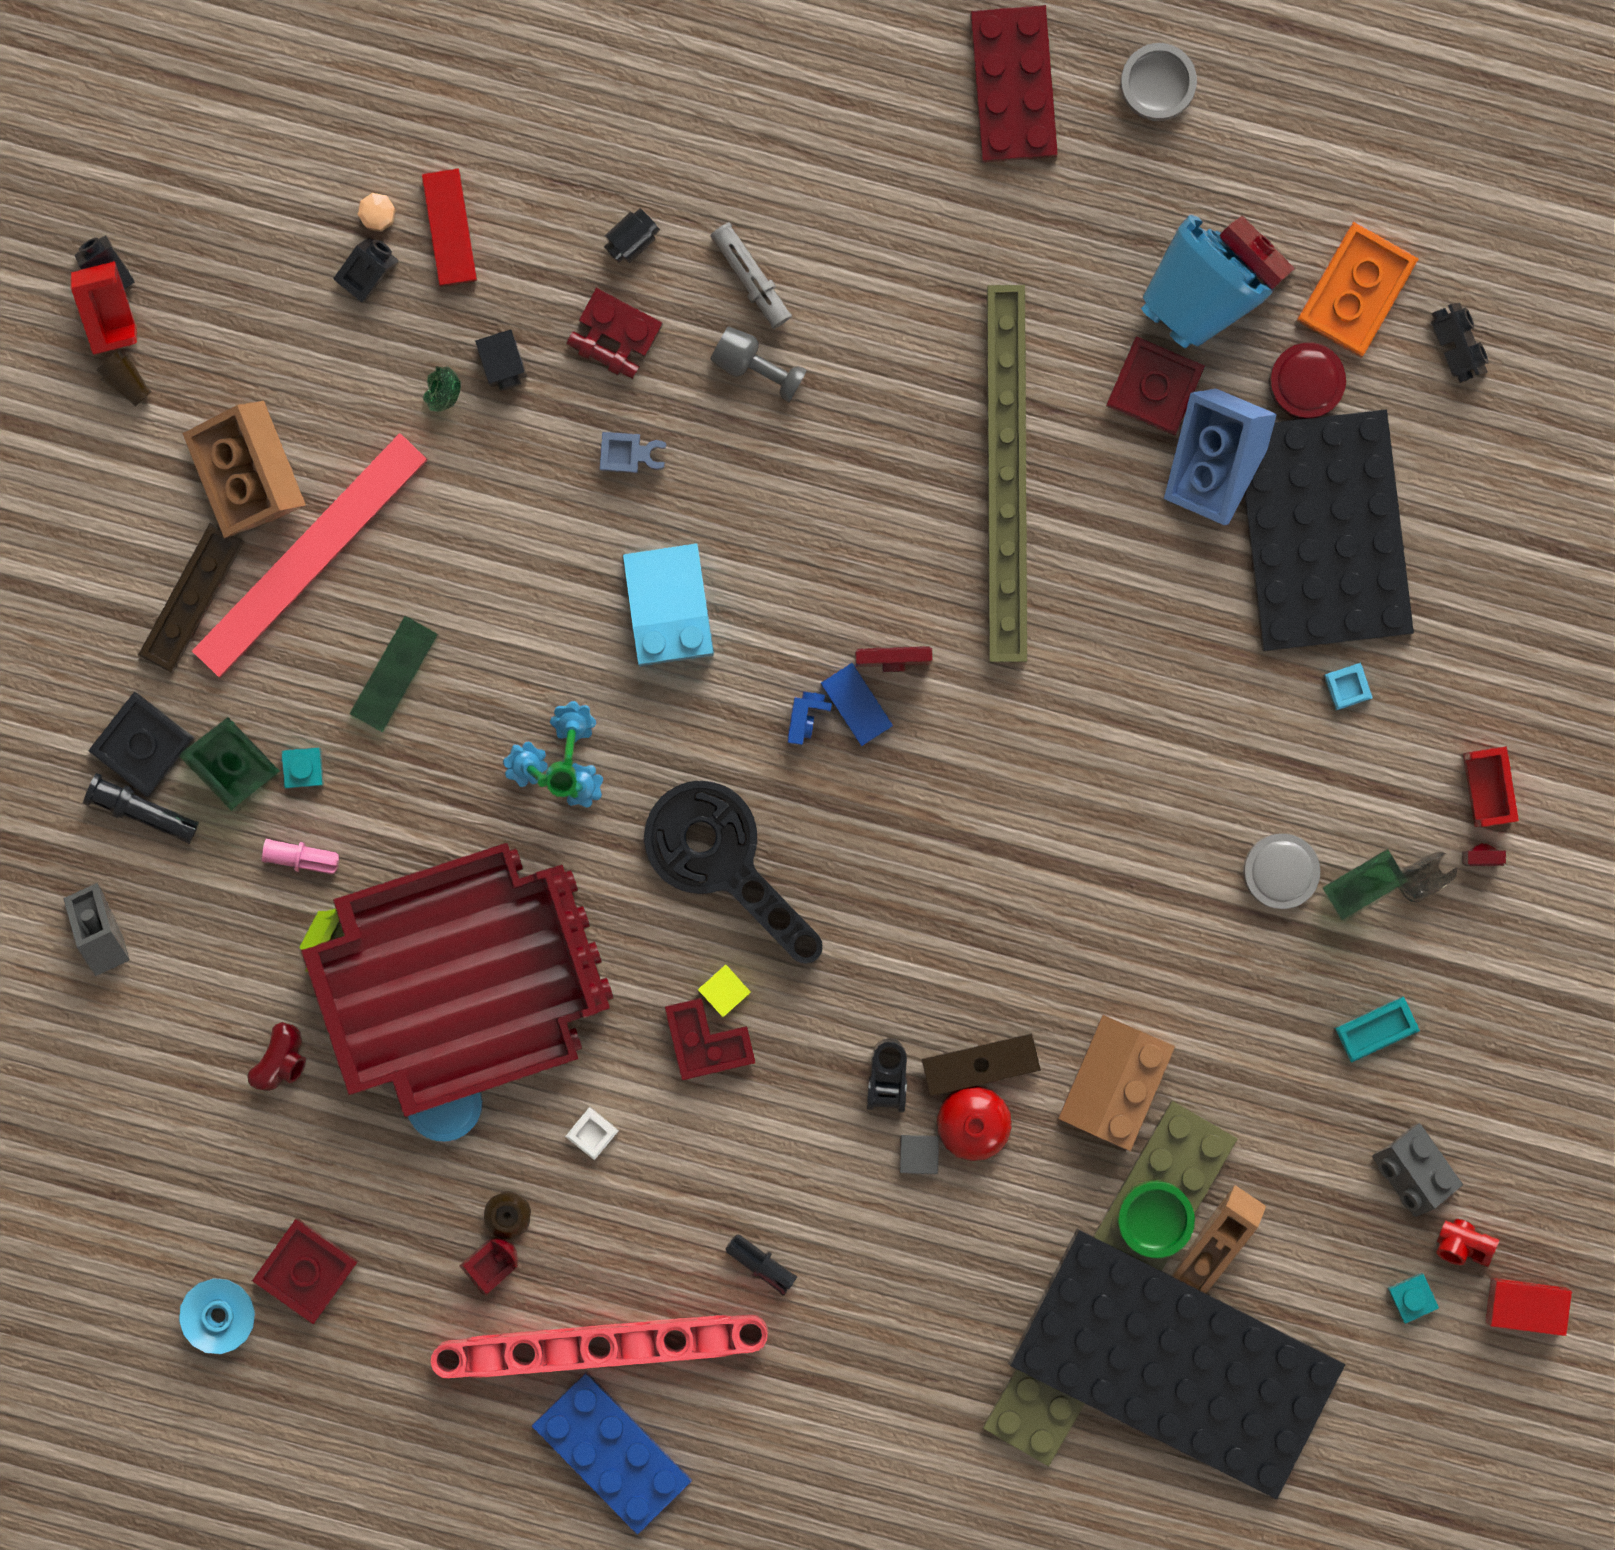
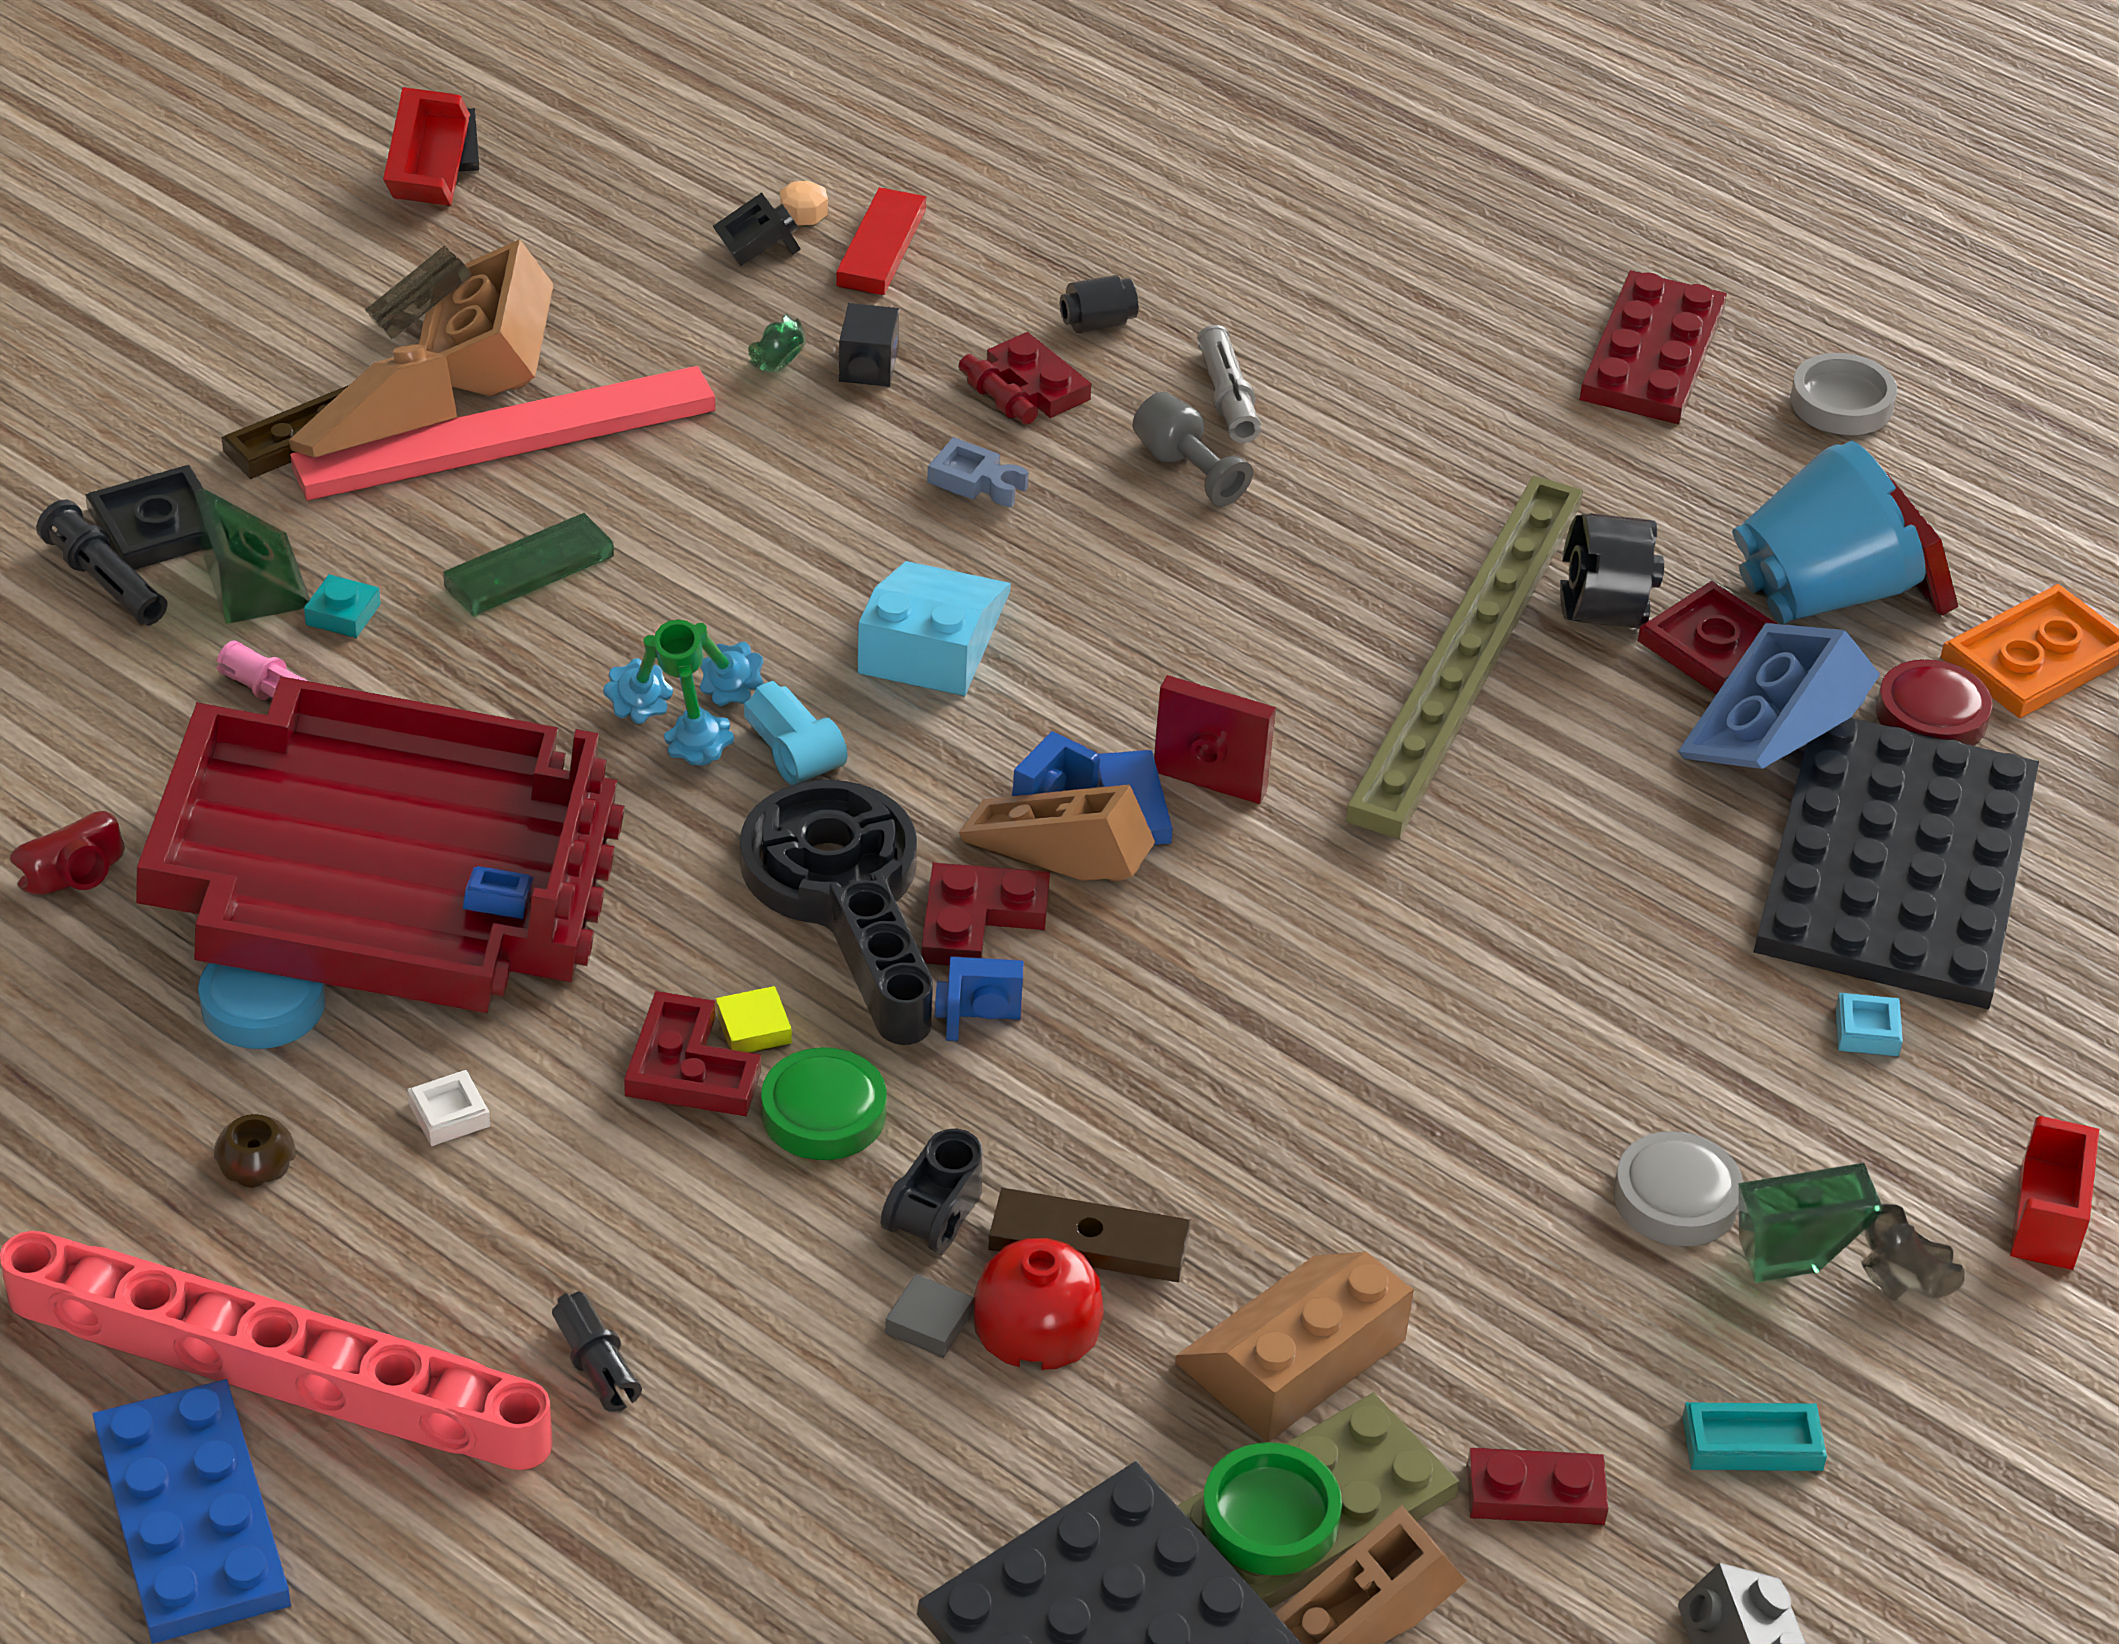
camera: 20 degrees right, 45 degrees down
(124, 378) = (401, 218): dark brown cone -> none
(179, 455) = (418, 292): none -> clear smoke tile
(226, 593) = (382, 402): none -> medium nougat slope
(490, 1264) = (187, 1187): dark red plate -> none
(542, 984) = (498, 892): none -> blue tile
(642, 759) = (798, 741): none -> medium azure piece
(793, 1033) = (823, 1103): none -> green piece
(797, 841) = (973, 897): none -> dark red plate
(829, 764) = (1068, 832): none -> medium nougat slope
(846, 914) = (979, 990): none -> blue bracket
(1073, 372) = (1610, 570): none -> black brick
(1276, 1116) = (1537, 1486): none -> dark red plate
(1484, 856) = (2014, 1274): dark red tile -> none

